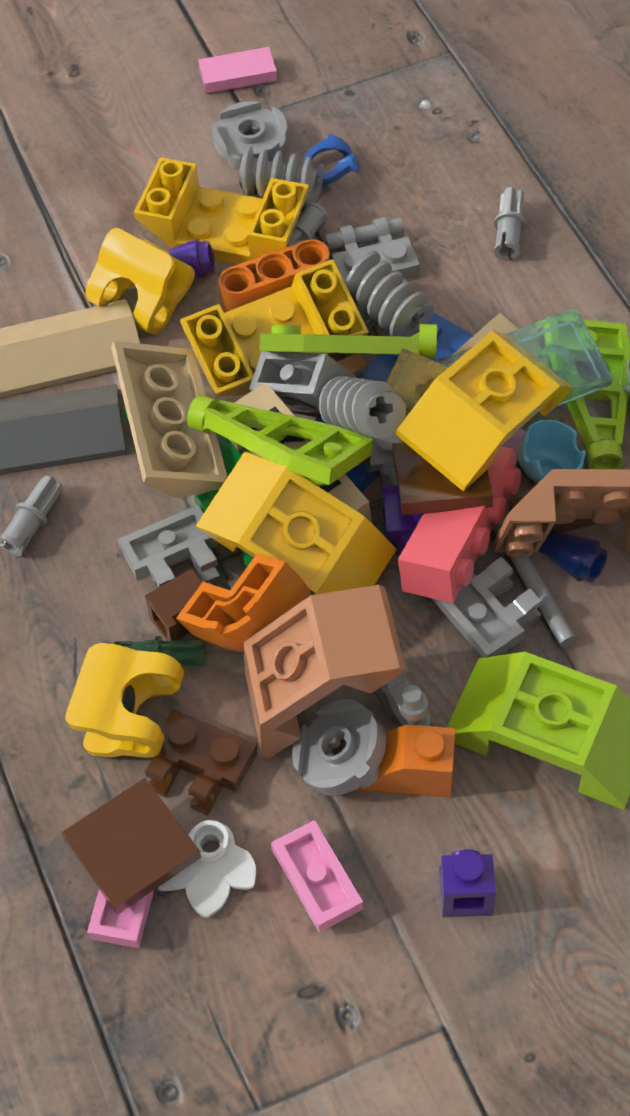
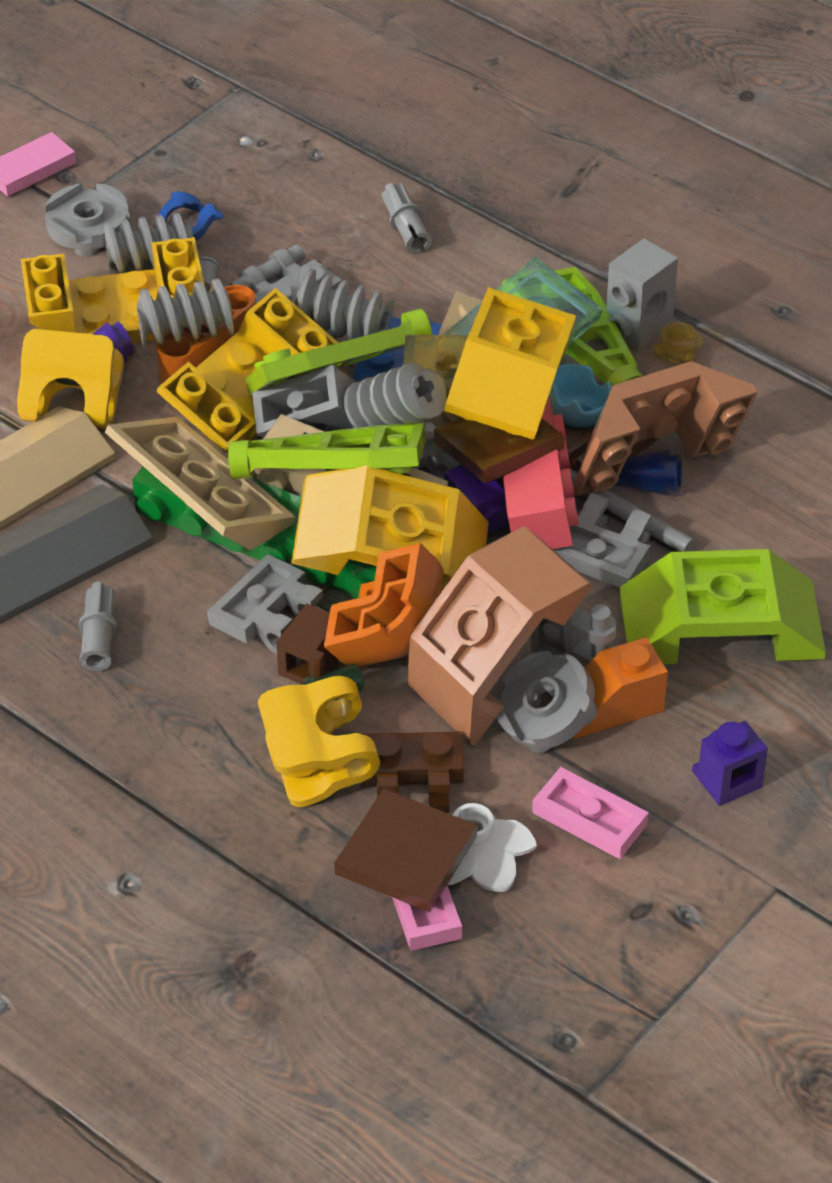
camera: 30 degrees left, 10 degrees down
(248, 256) = (184, 311): none -> light grey piece

